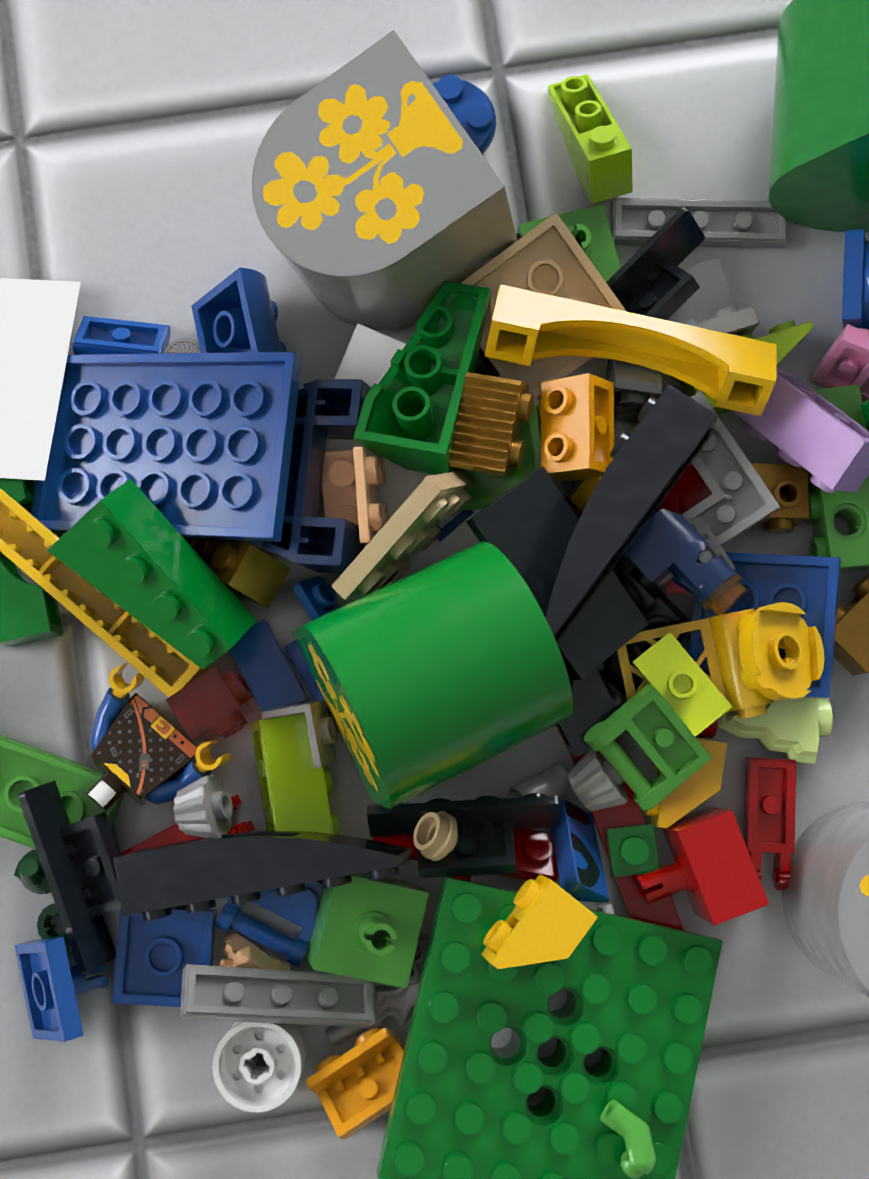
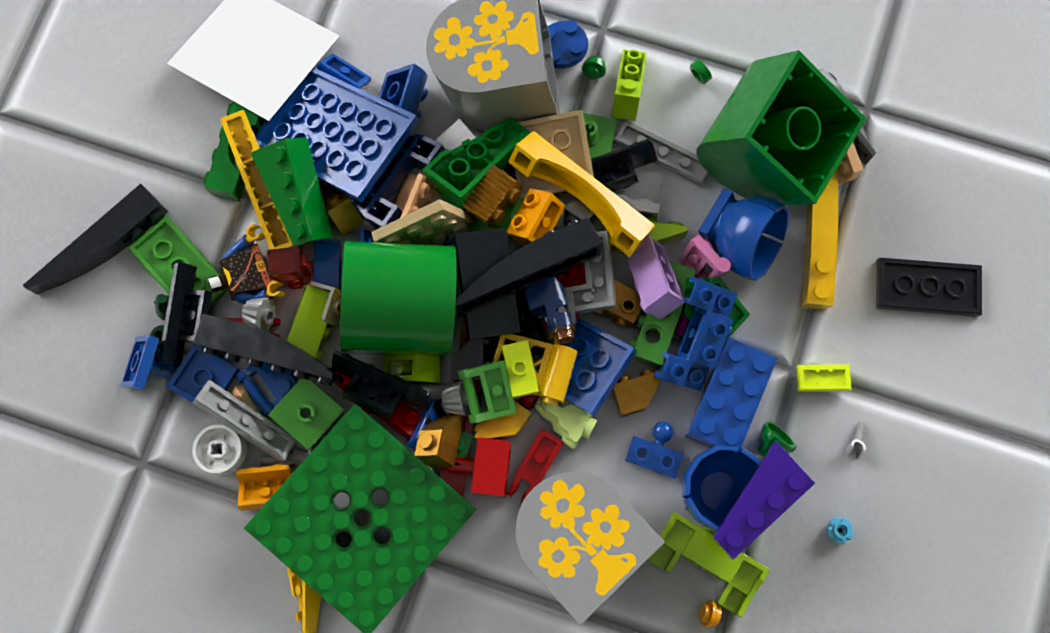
camera: 30 degrees right, 5 degrees down
(435, 835) = (360, 379): tan plate -> none
(502, 773) = (414, 367): none -> lime slope
(521, 136) = (594, 67): none -> green plate
(540, 928) = (384, 448): yellow slope -> none
(612, 863) = (440, 441): none -> pearl gold slope
(640, 1152) = (378, 577): bright green arm -> none
(691, 63) = (700, 71): none -> green tile
(759, 654) = (562, 376): yellow plate -> none

